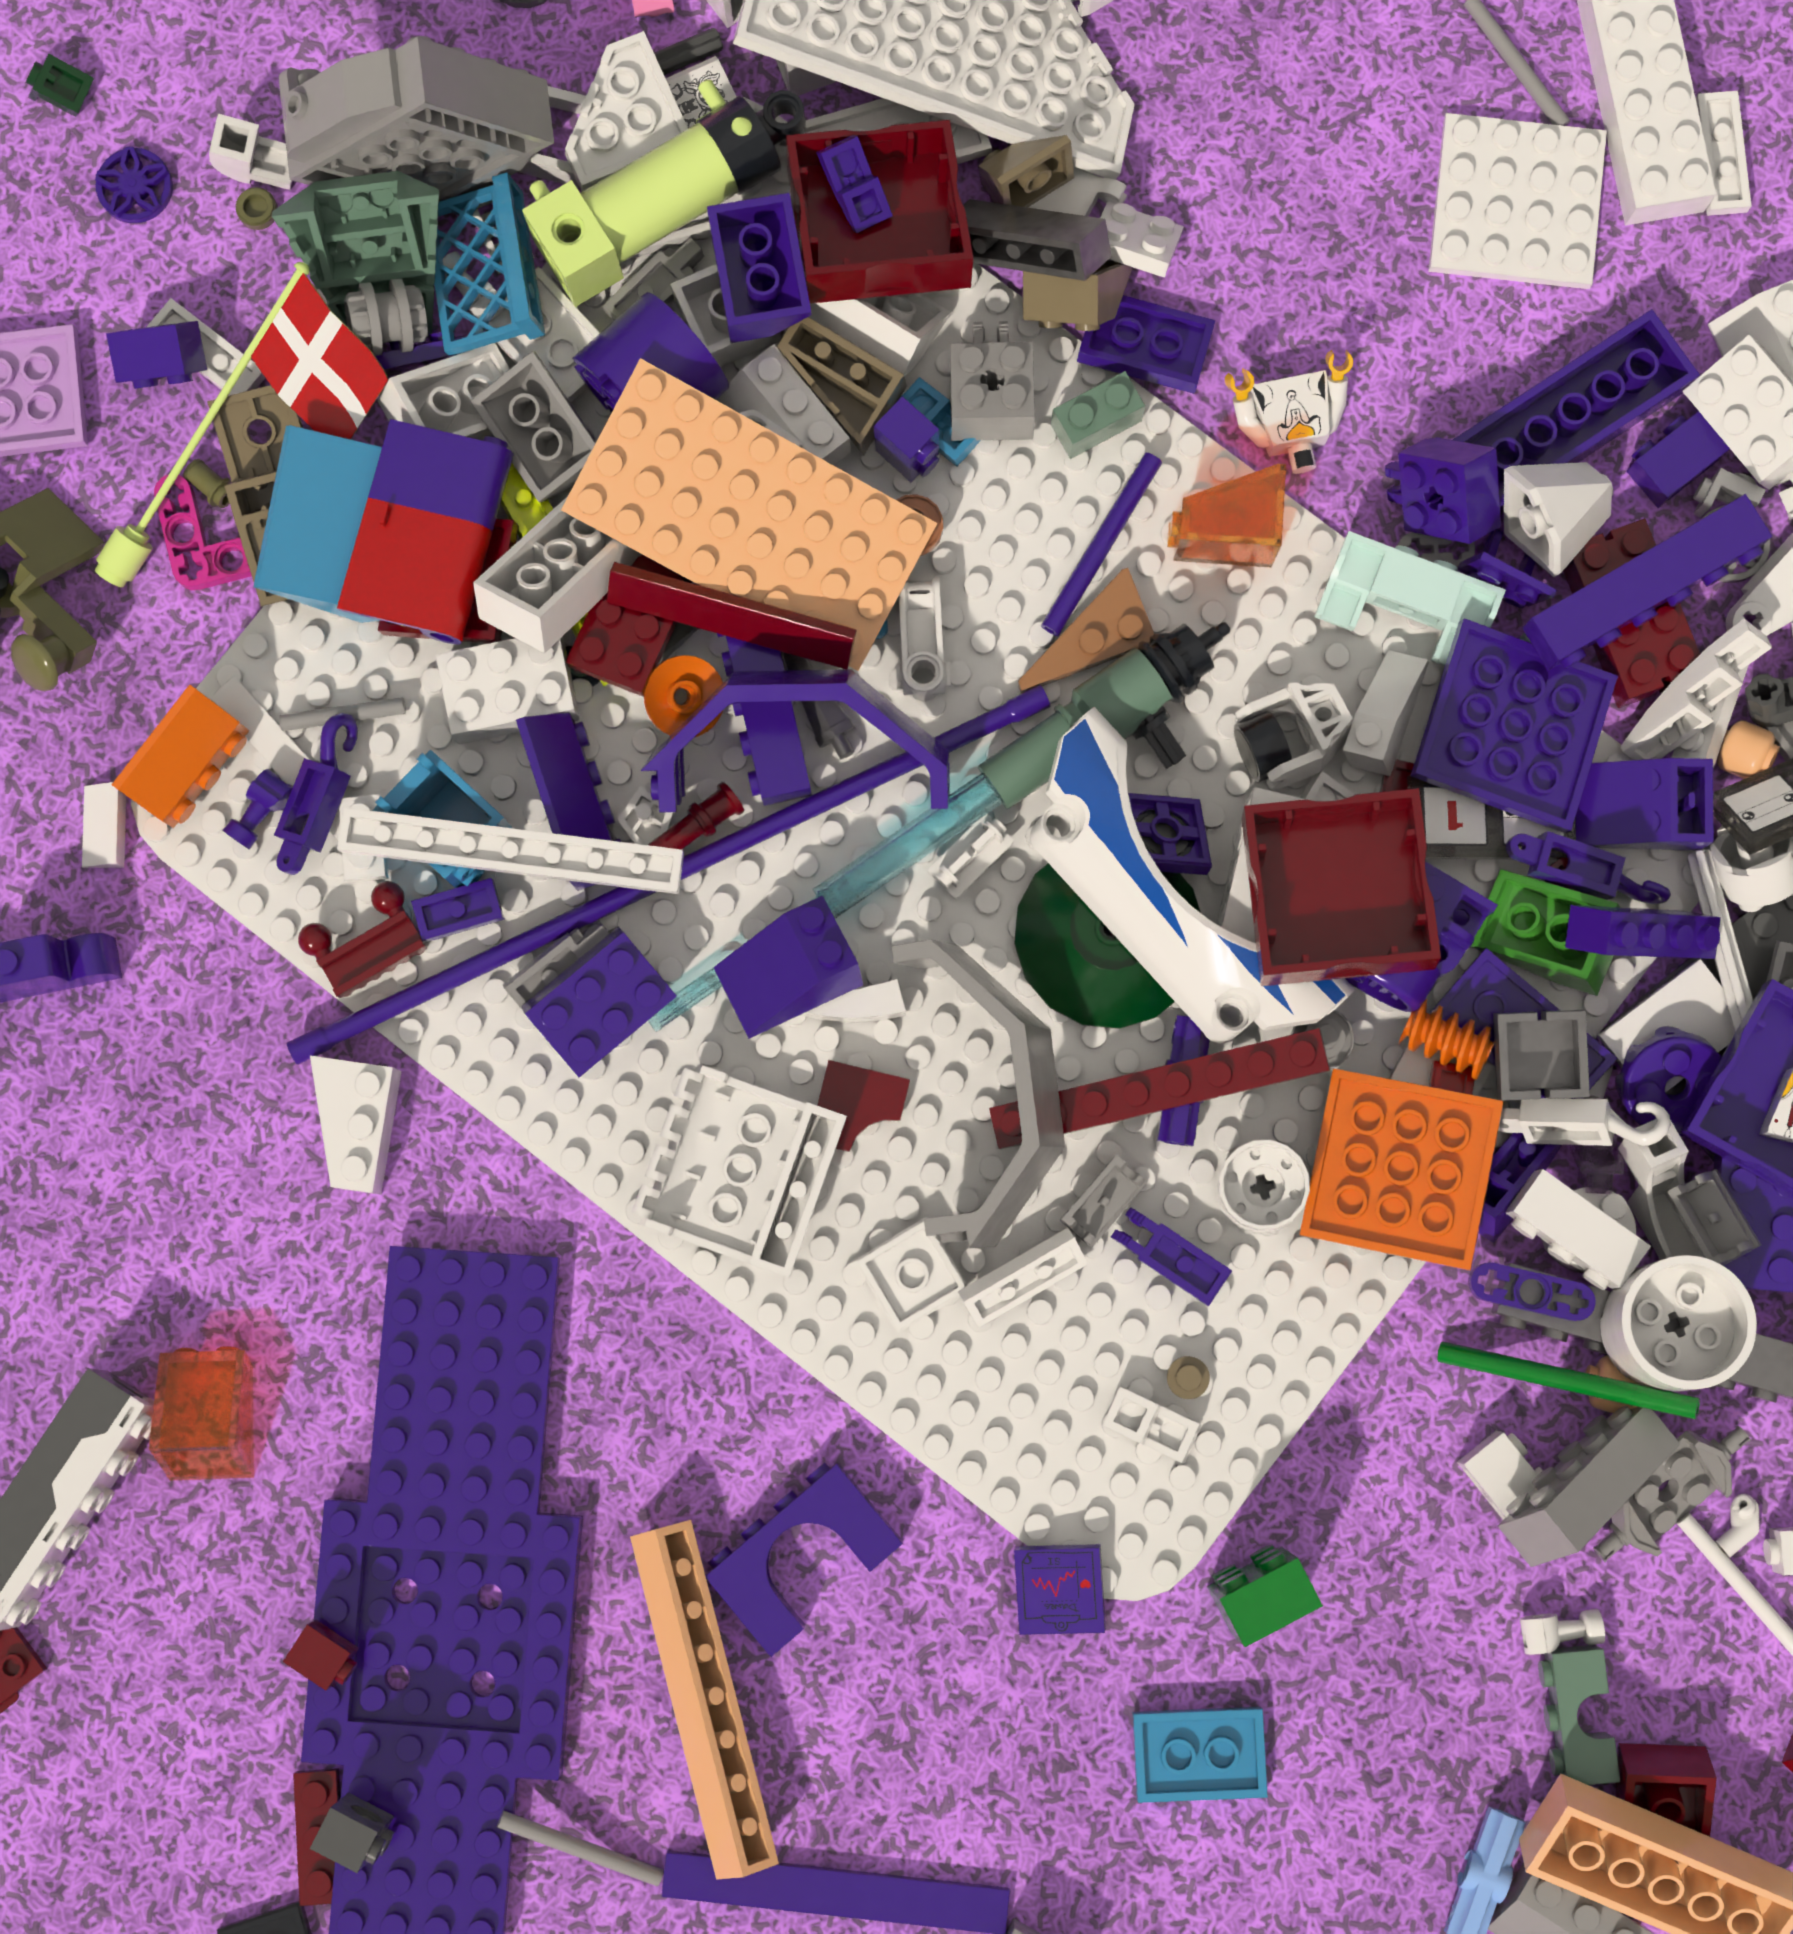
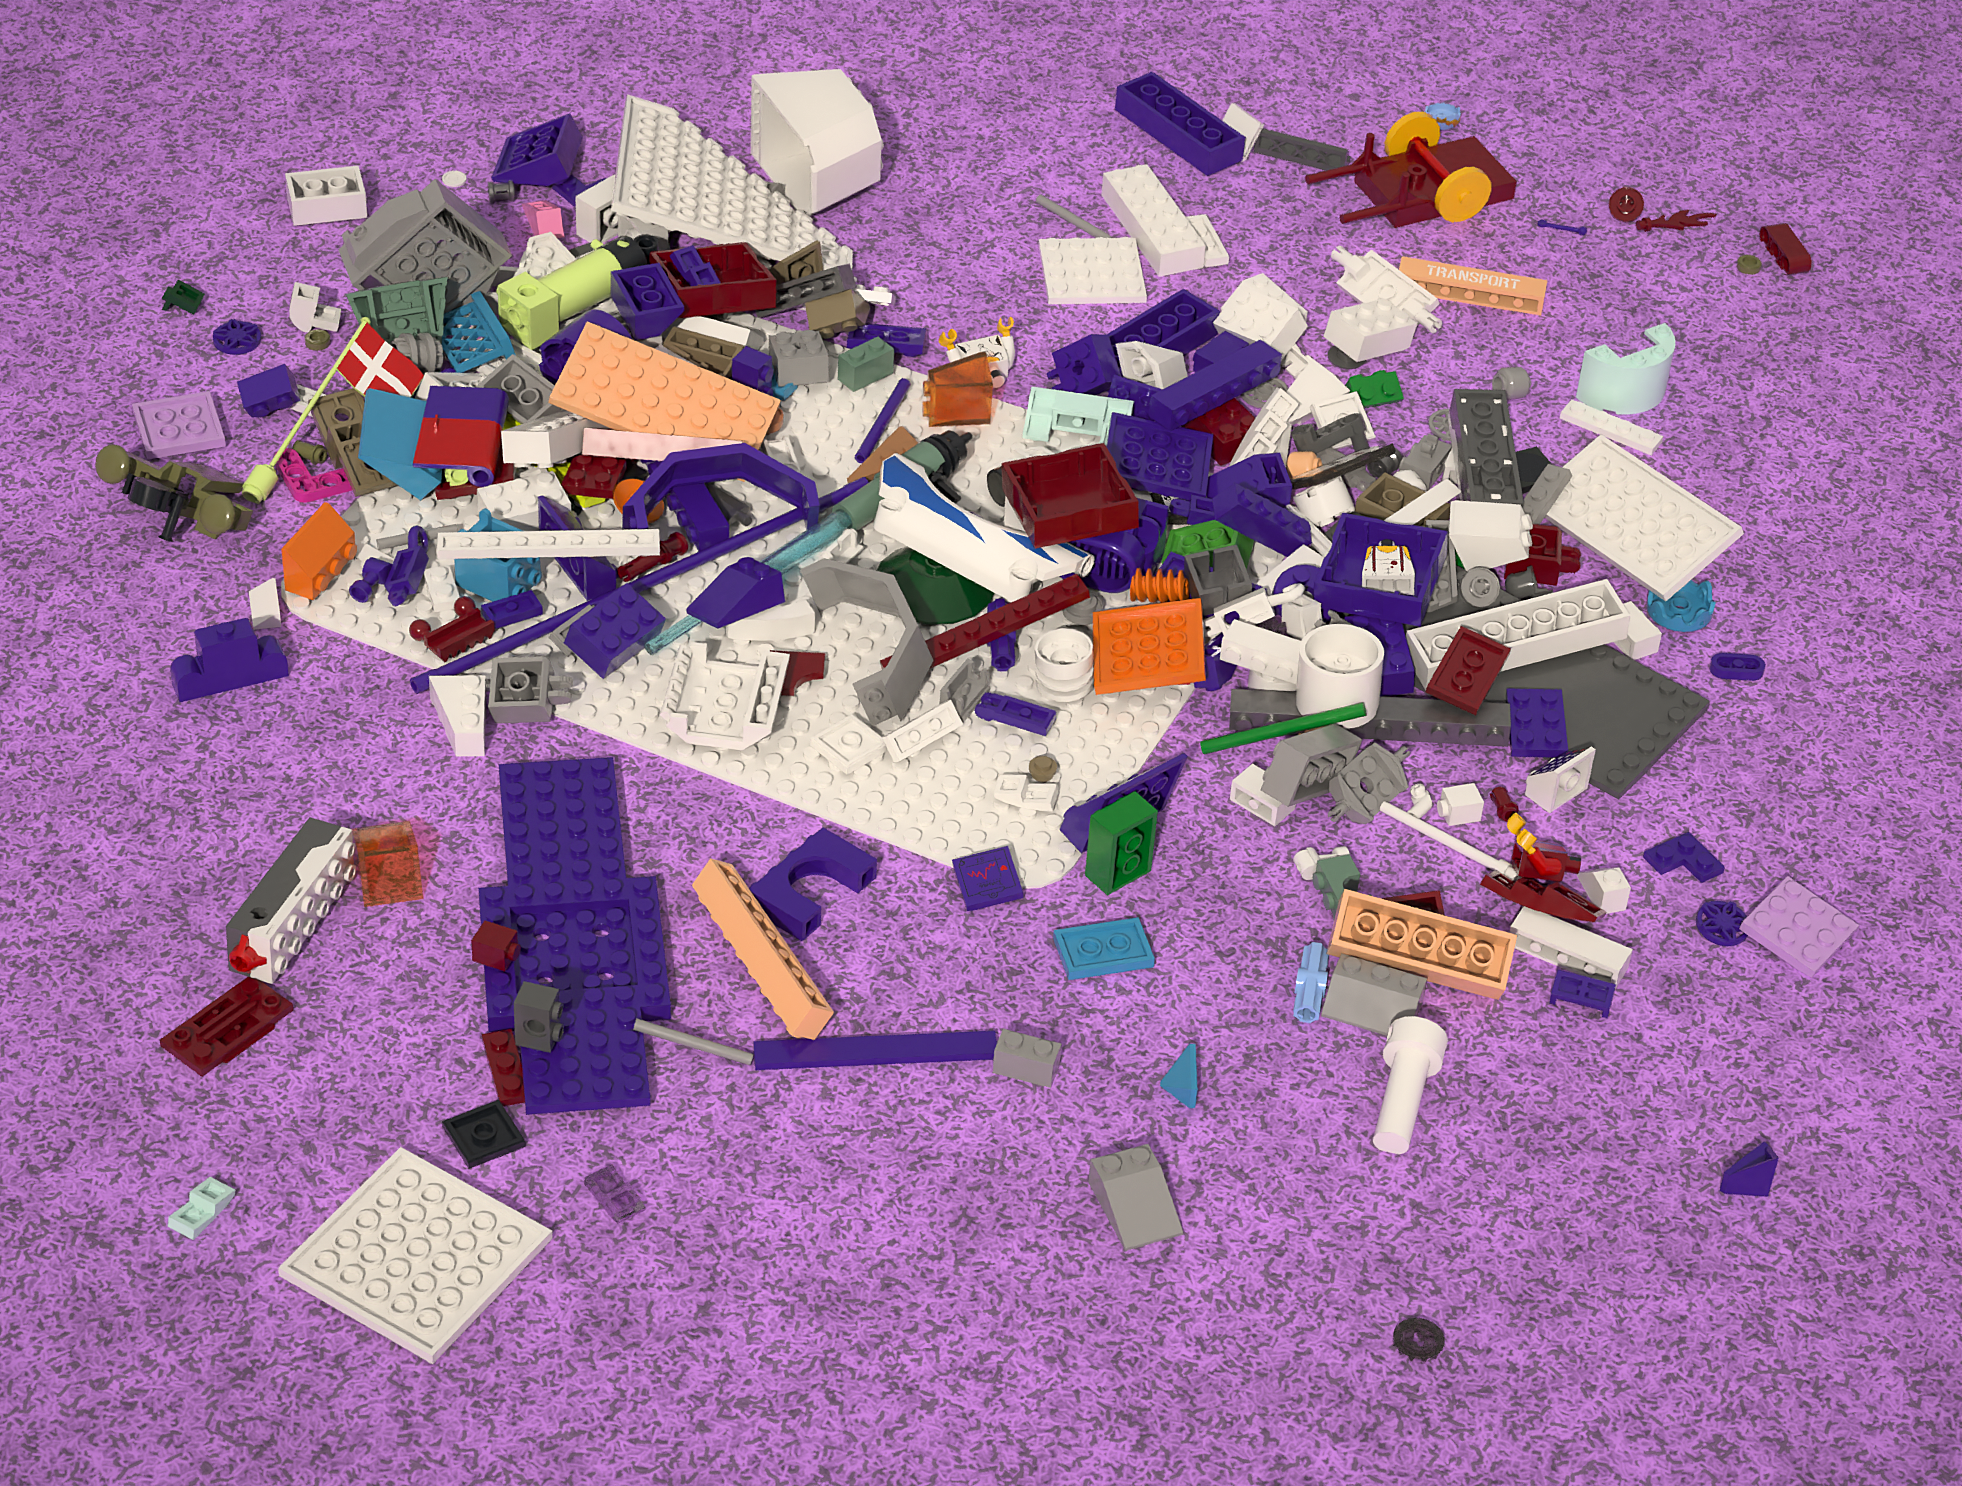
camera: 20 degrees left, 40 degrees down
(447, 1103) = (524, 689): none -> light grey hinge
(1288, 1500) = (1152, 785): none -> dark purple slope
(1560, 1311) = (1221, 694): dark purple beam -> none

